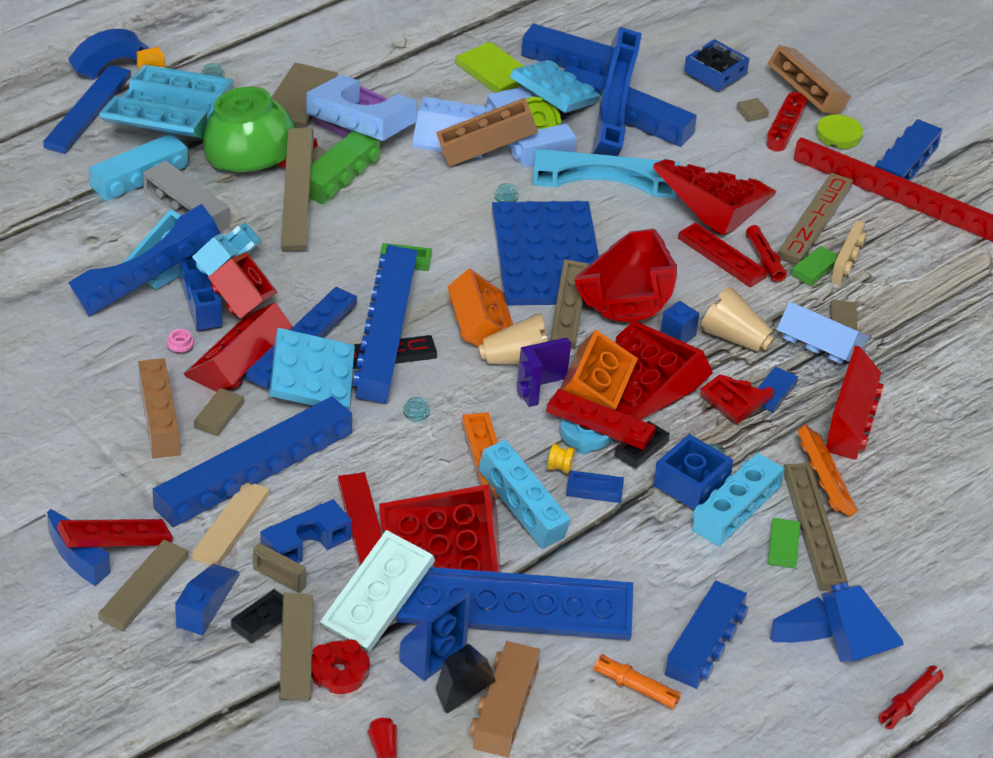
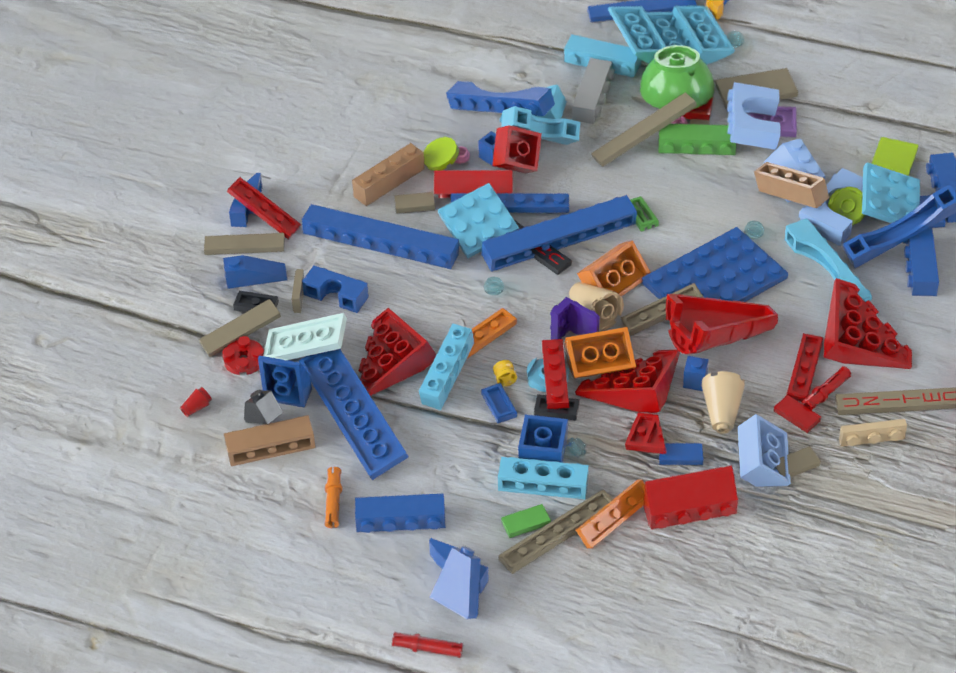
camera: 65 degrees right, 5 degrees up
(173, 346) = (440, 153): none -> lime tile
(230, 524) = (324, 255): tan tile -> none
(361, 510) = (366, 313): red tile -> none
(780, 288) = (797, 413): none -> red tile
(814, 265) = (834, 420): bright green tile -> none

